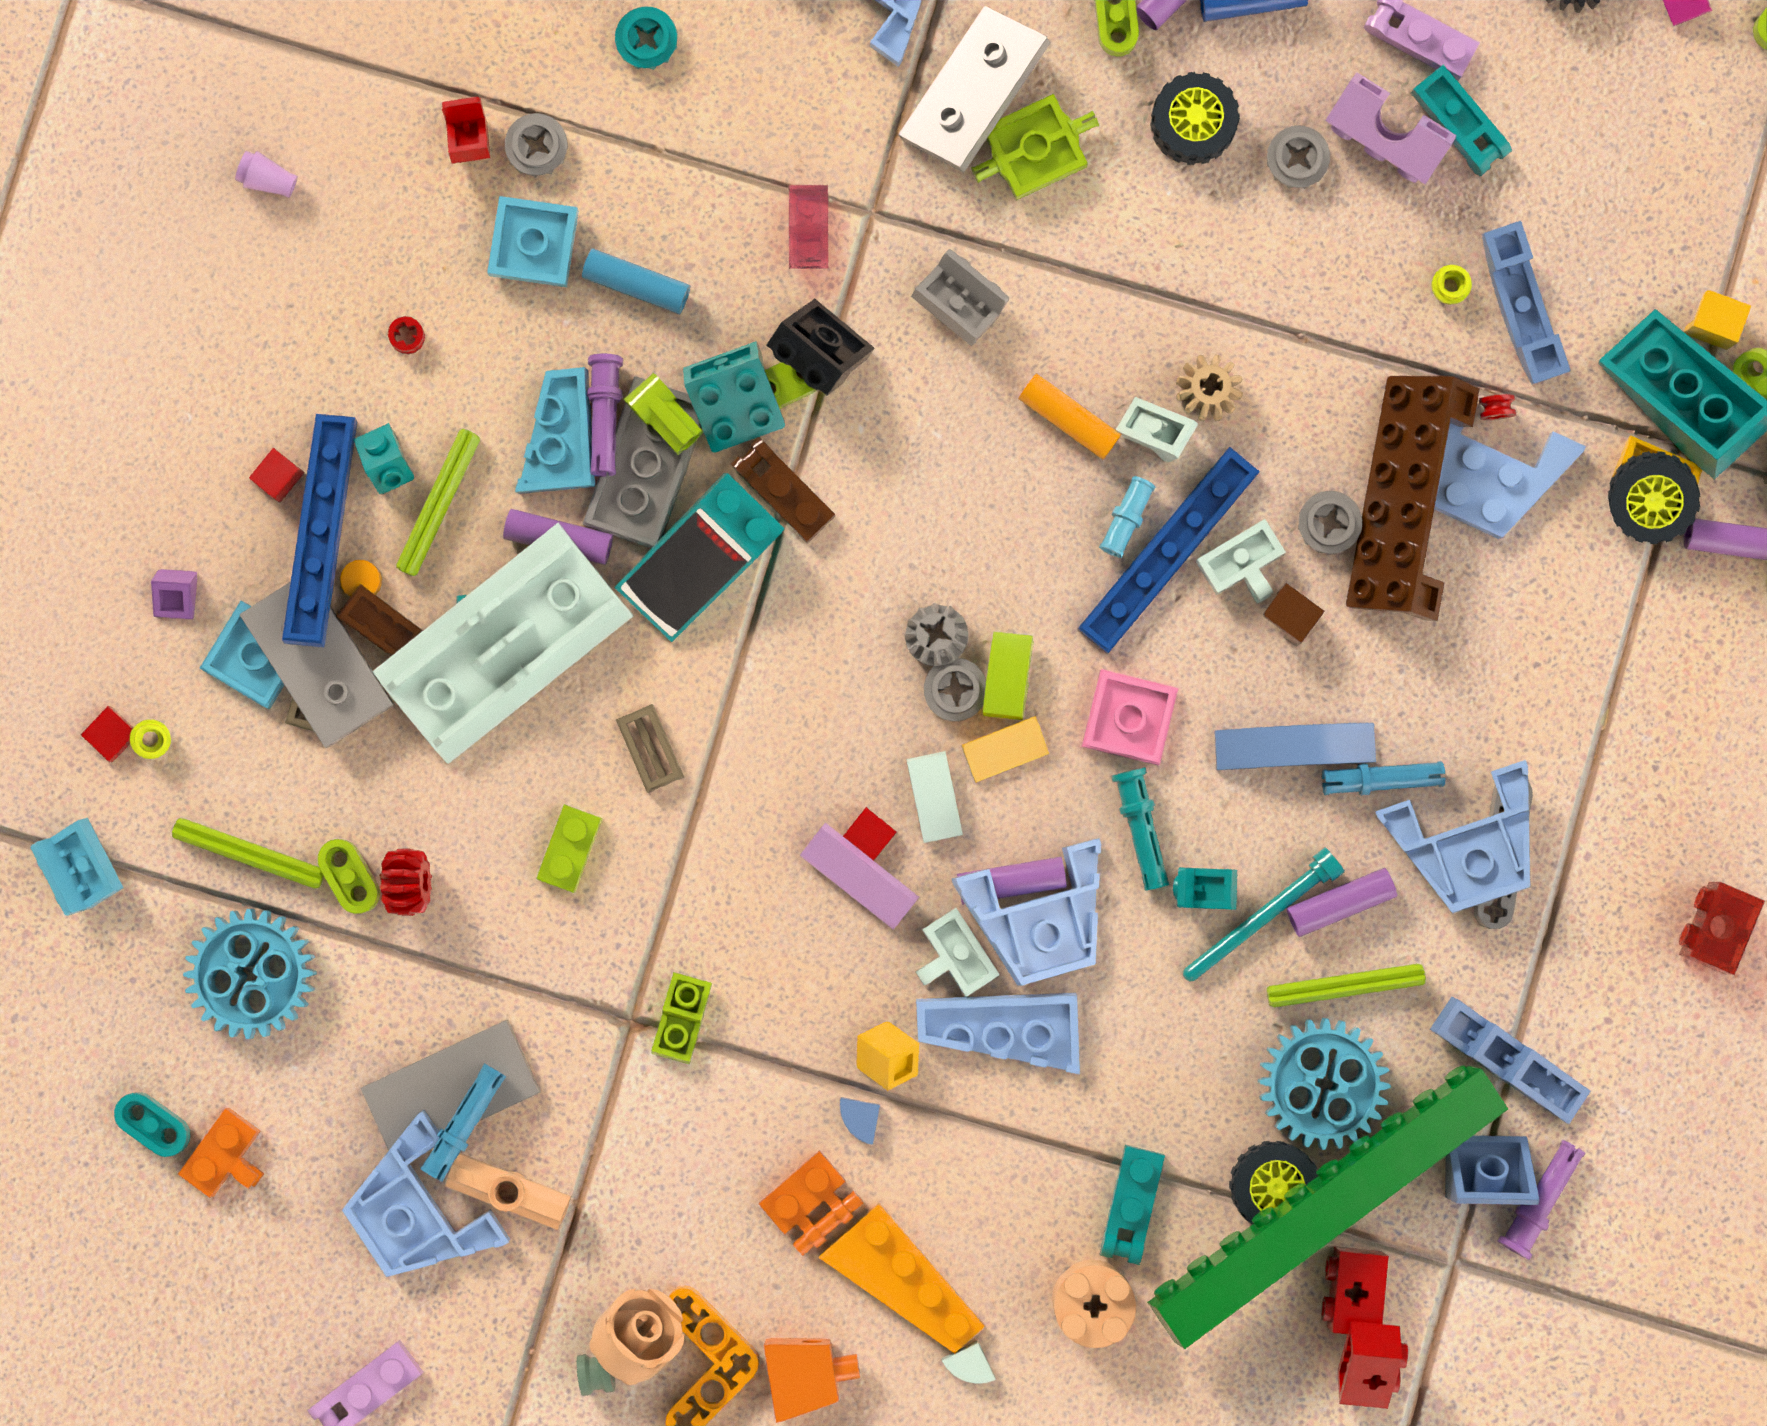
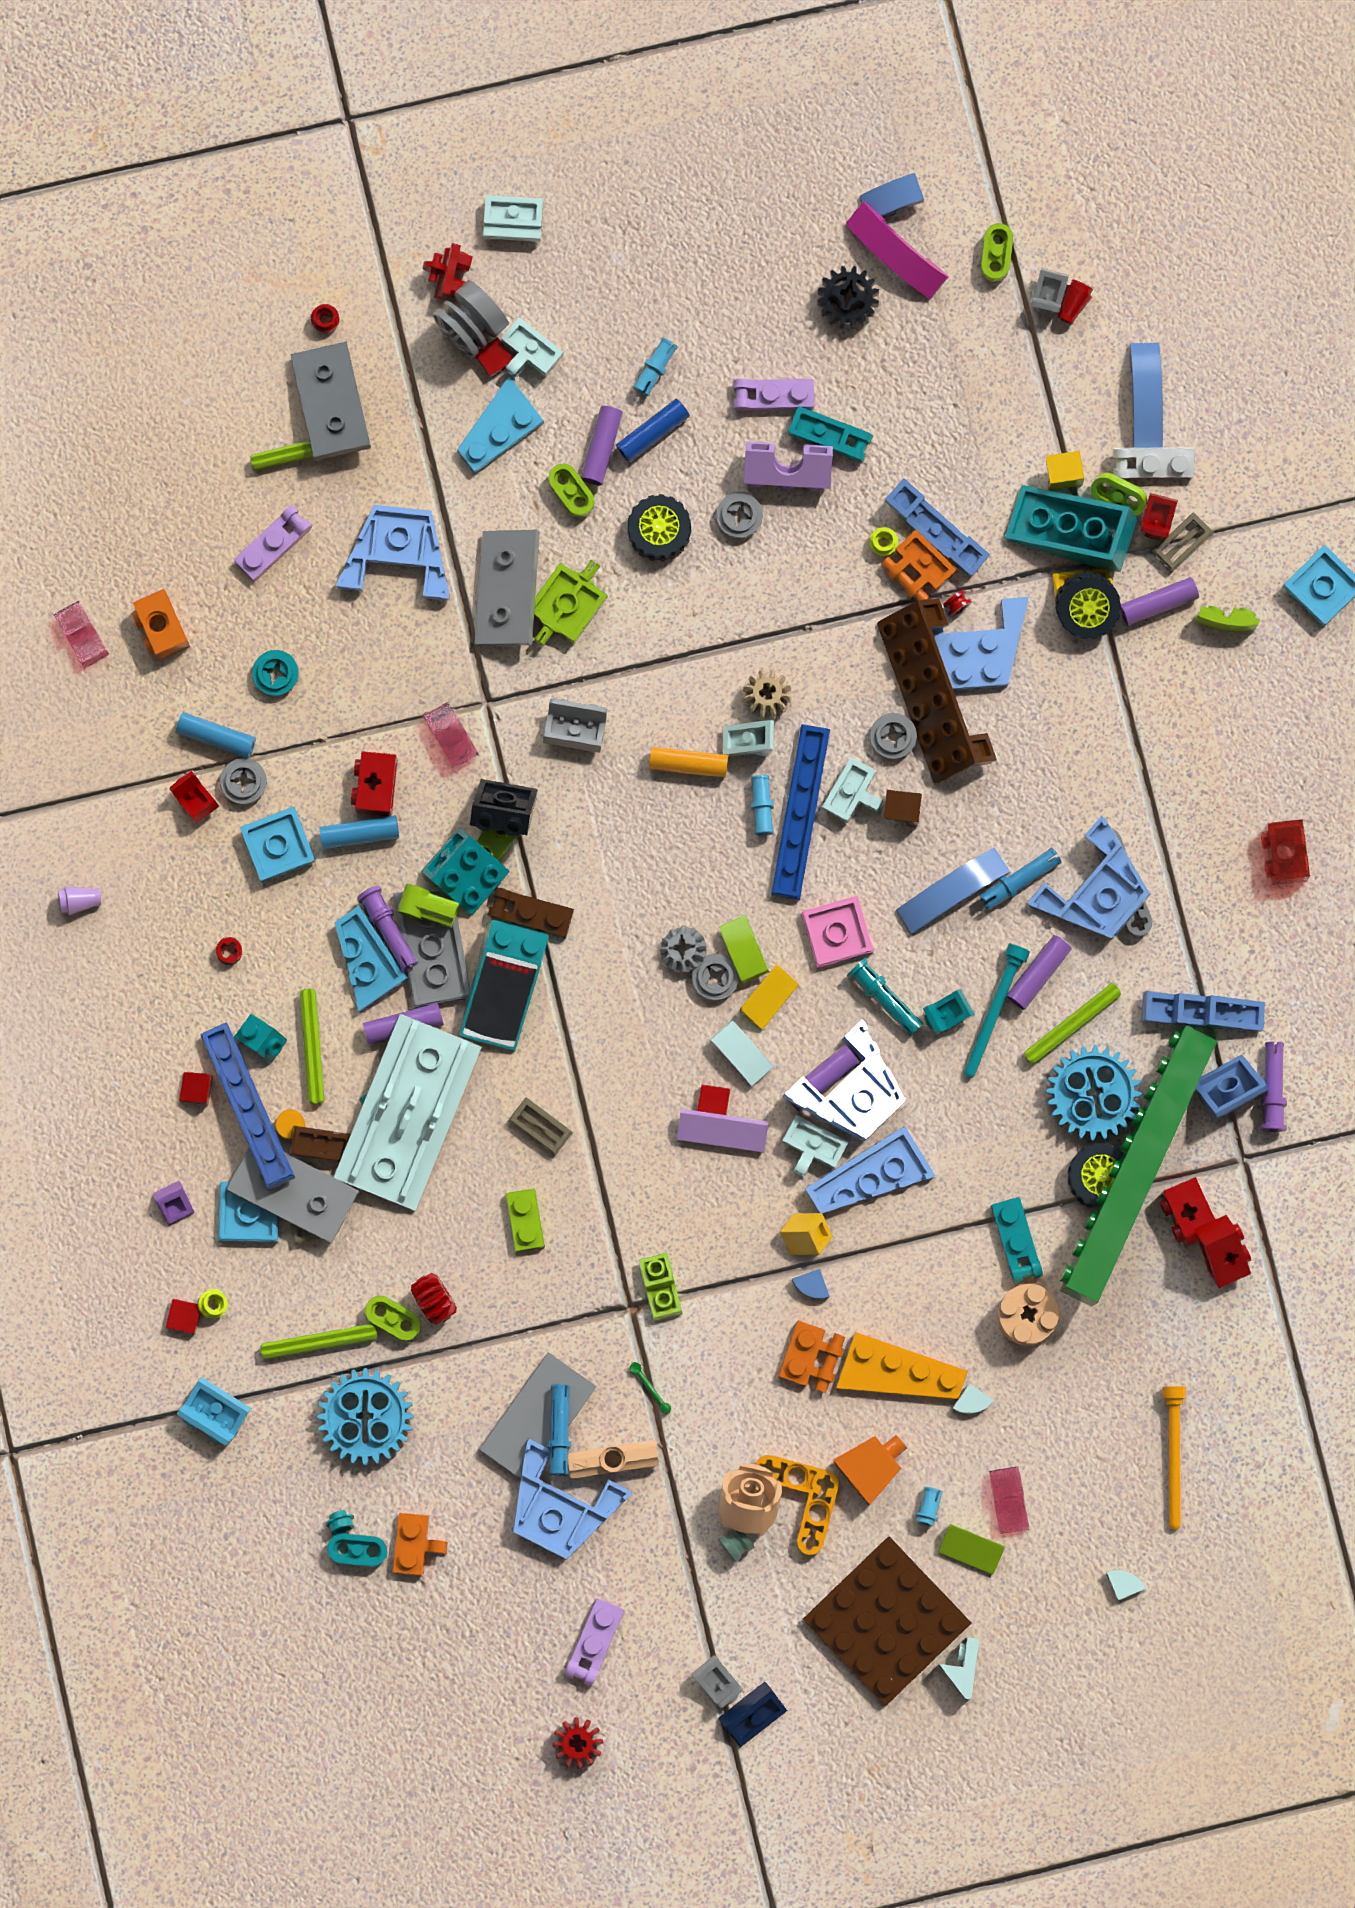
camera: 35 degrees left, 5 degrees down
(150, 1080) = (340, 1522): none -> teal plate
(534, 72) = (215, 735): none -> dark azure piece
(598, 1097) = (635, 1368): none -> green hinge
(686, 255) = (379, 766): none -> red brick
(1487, 335) = (924, 560): none -> orange plate

